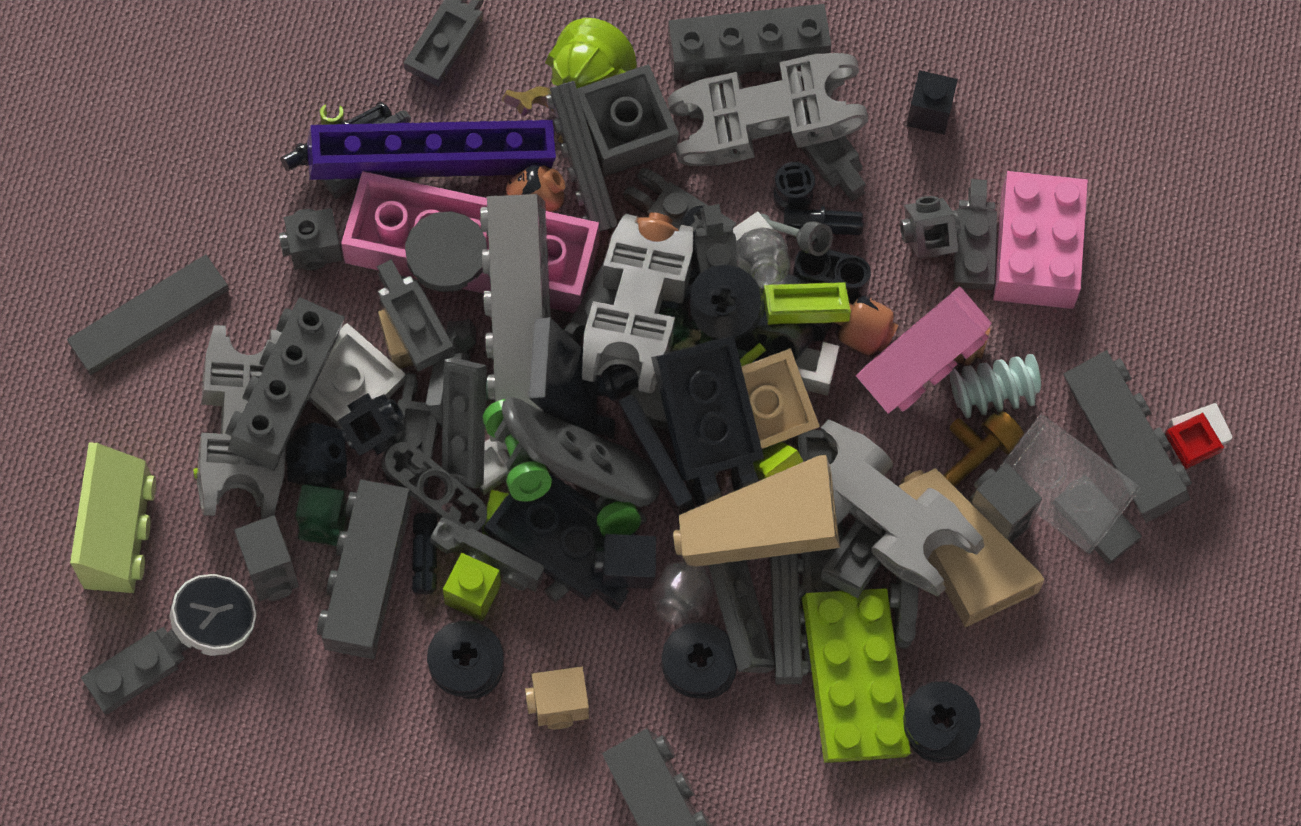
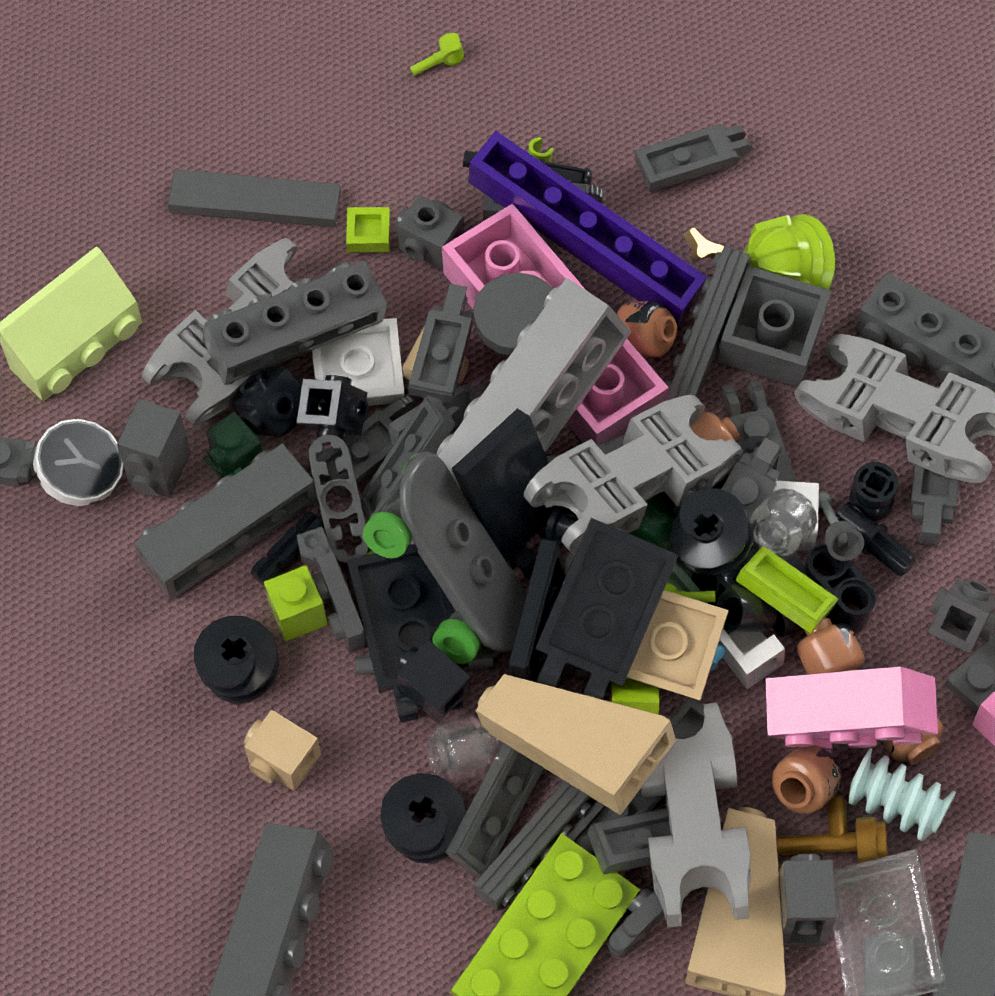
camera: 45 degrees right, 5 degrees down
(191, 89) = (450, 53): none -> lime hand
(260, 272) = (368, 229): none -> lime plate
(929, 424) = (807, 779): none -> nougat head

